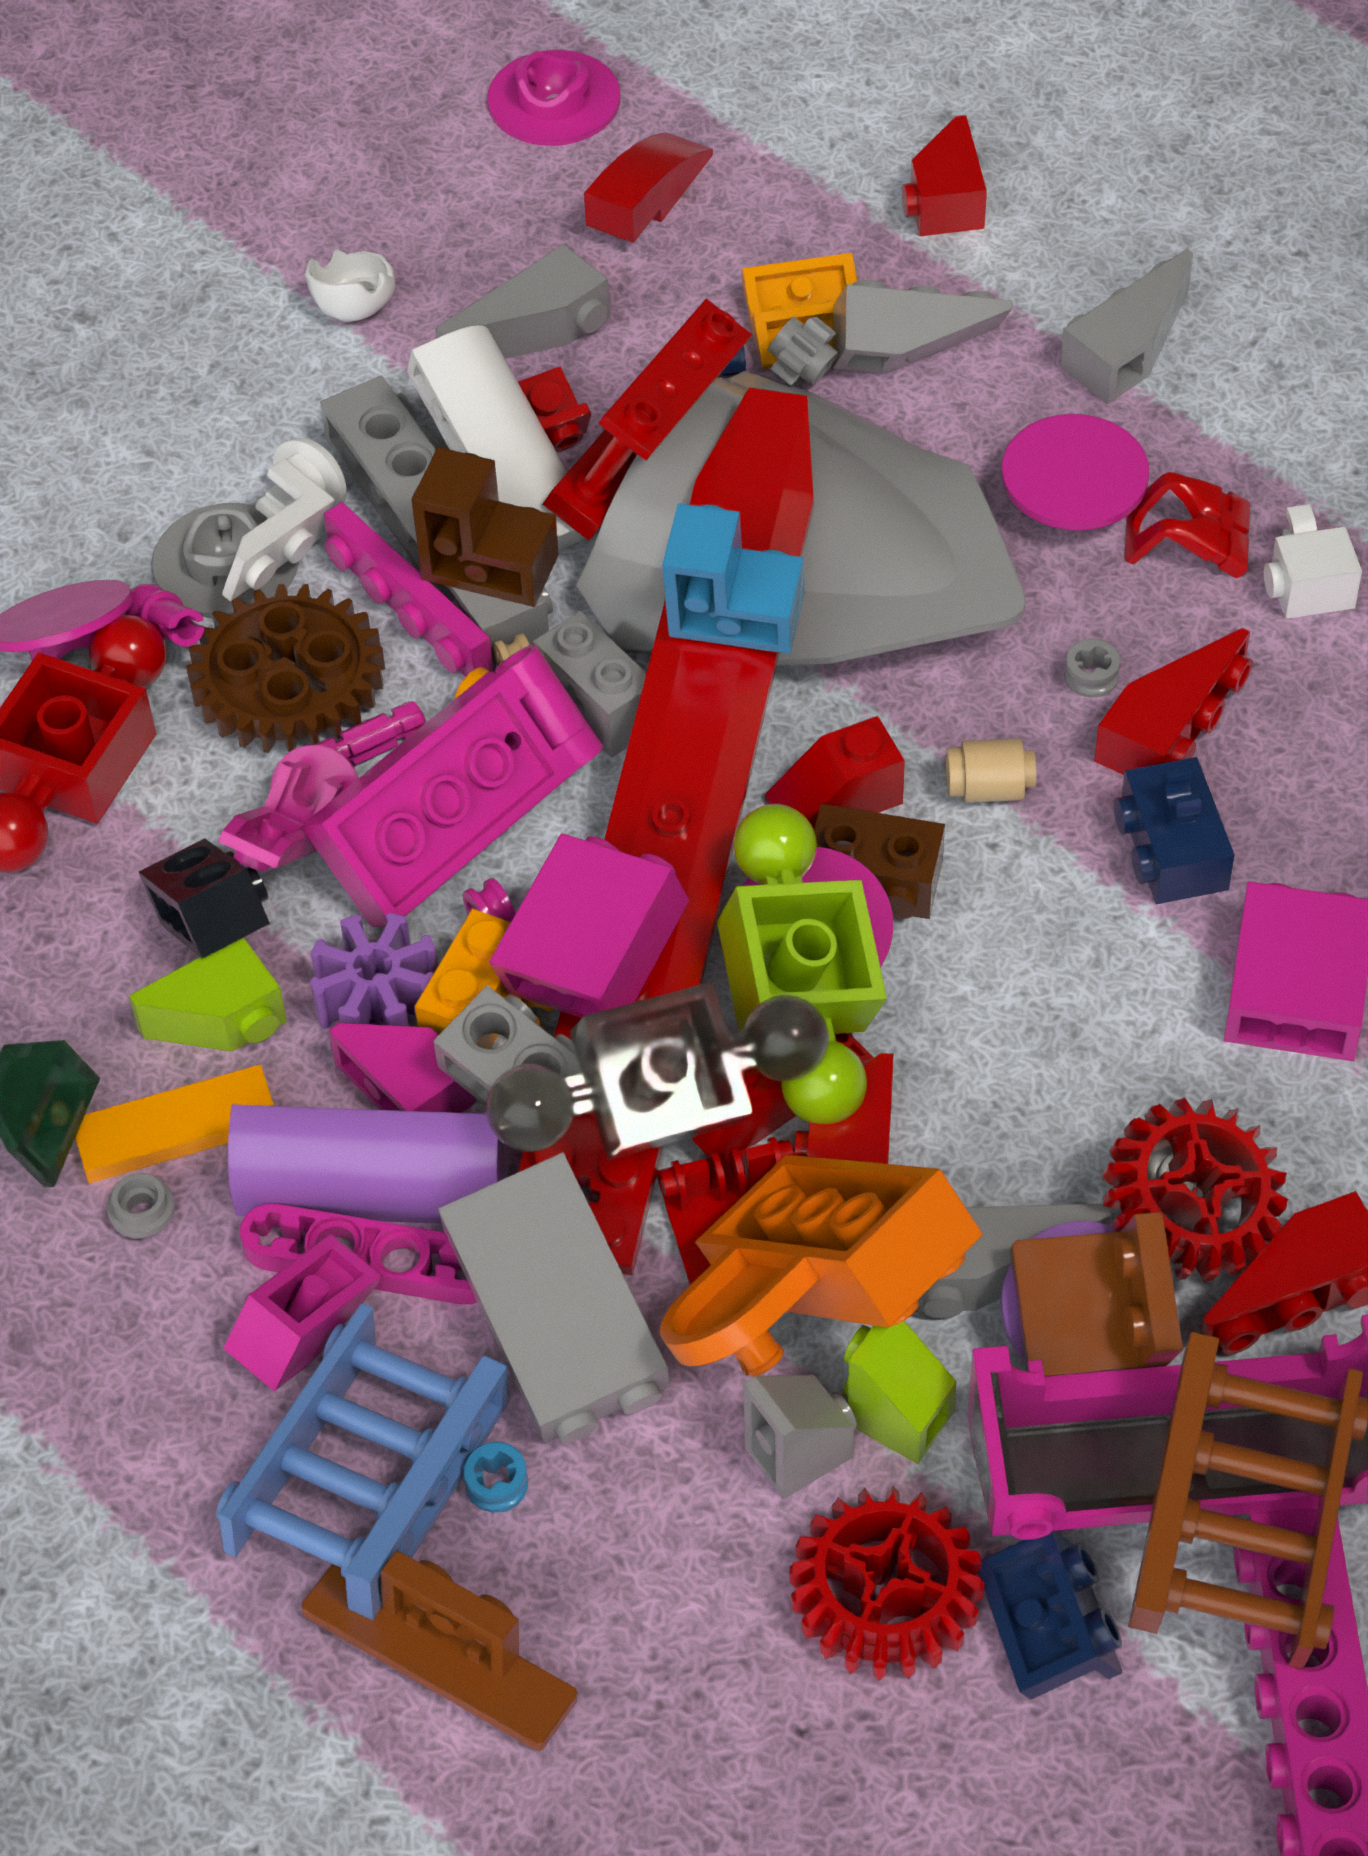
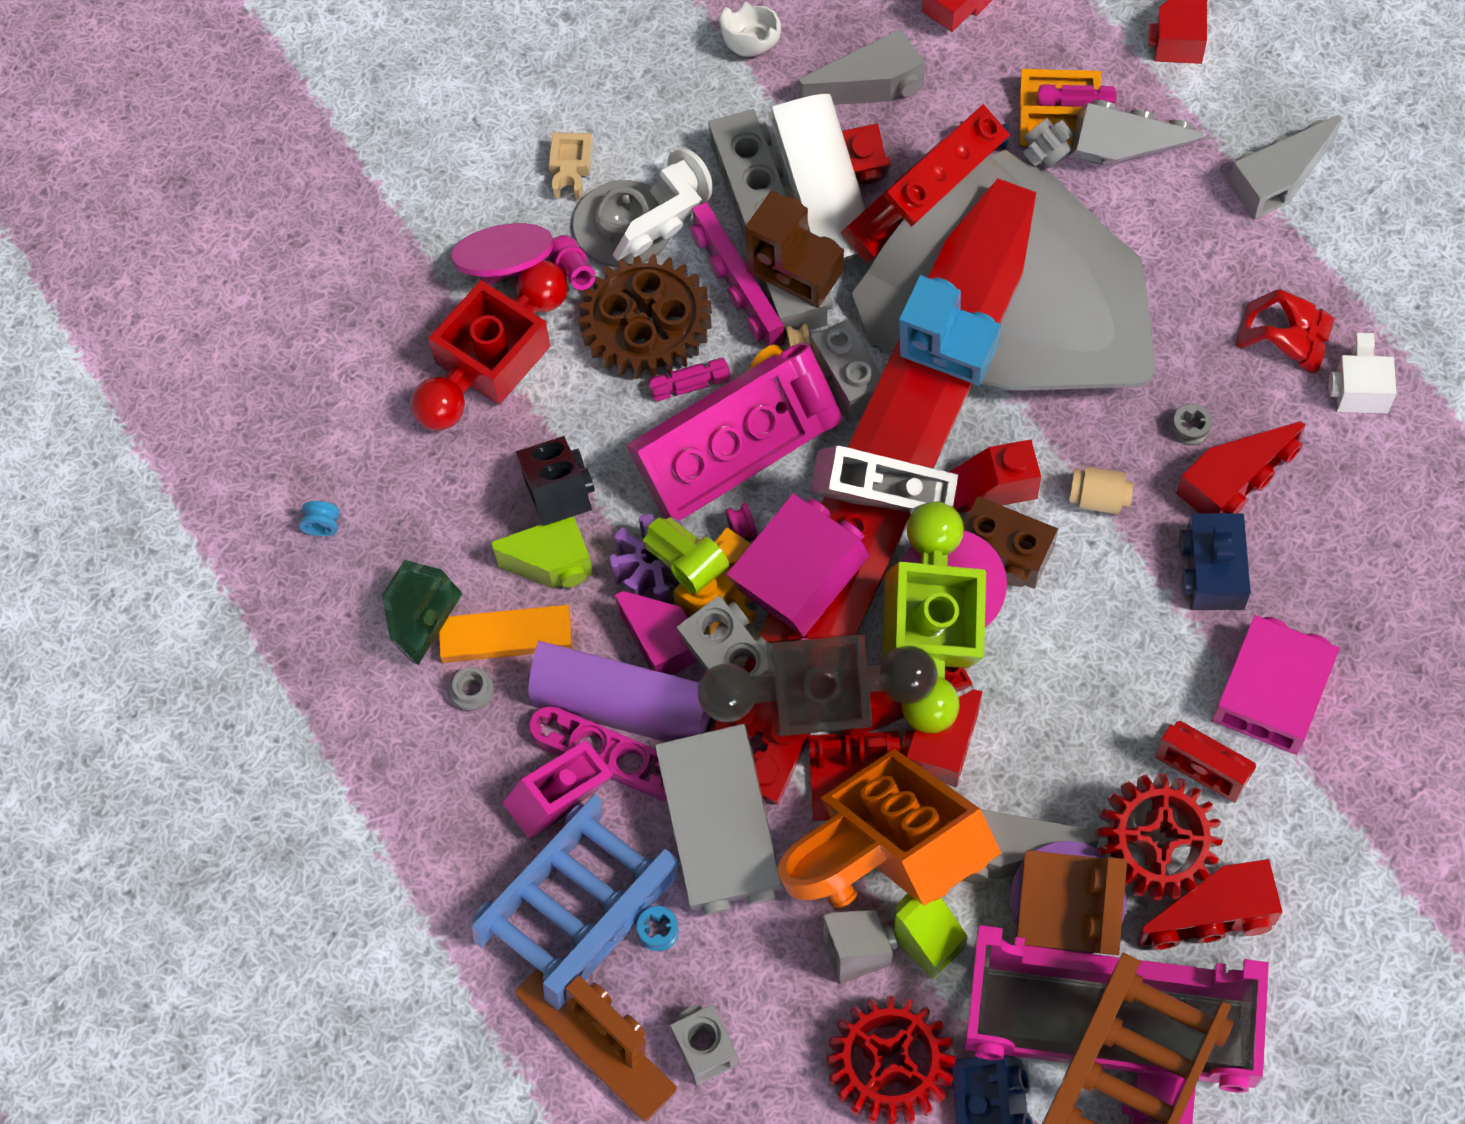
camera: 15 degrees right, 10 degrees up
(131, 491) = (569, 160): none -> tan plate
(298, 789) = (637, 411): dark pink piece -> none
(431, 952) = (691, 559): none -> lime piece
(608, 1646) = (710, 1062): none -> light grey brick
(675, 794) = (879, 480): none -> light grey slope
(817, 288) = (1074, 95): none -> dark pink axle
(1075, 472) = (1215, 274): dark pink piece -> none
(1259, 1090) = (1205, 760): none -> red bracket

